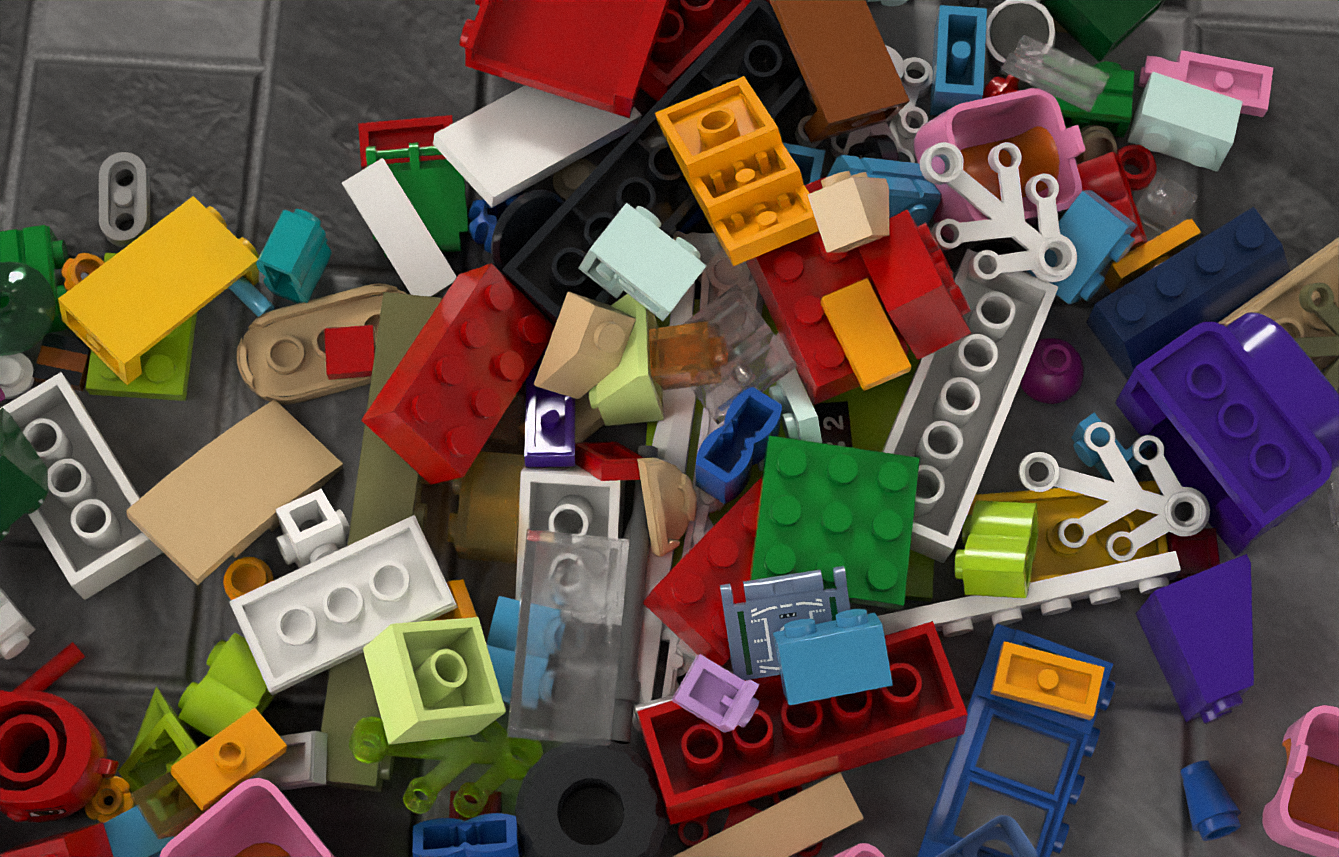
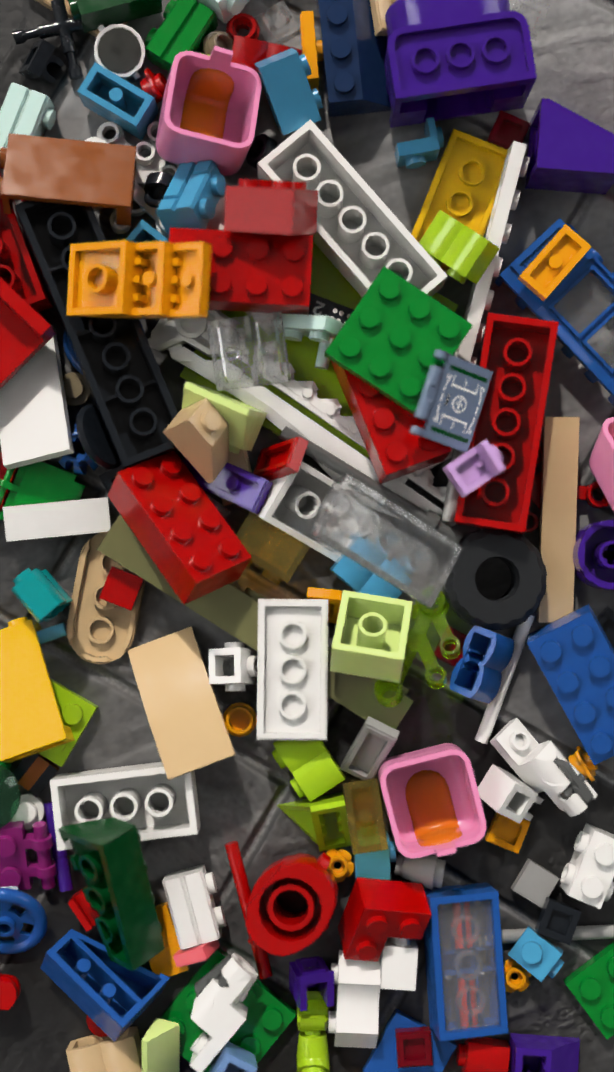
camera: 65 degrees left, 15 degrees up
(228, 759) = (358, 784): light orange plate -> none
(643, 261) = (168, 376): light aqua brick -> none
(668, 503) = (328, 437): tan tile -> none
(687, 355) = (242, 377): clear orange brick -> none
(731, 450) = (311, 369): blue brick -> none
(832, 656) = (489, 385): dark azure brick -> none
(851, 210) = (211, 221): tan slope -> none
(865, 334) = (293, 257): light orange tile -> none
(1004, 216) = (251, 126): white plant -> none
(1053, 371) = (355, 151): magenta brick -> none
(1057, 73) = (166, 40): clear slope -> none
(1123, 494) = (458, 155): white plant -> none

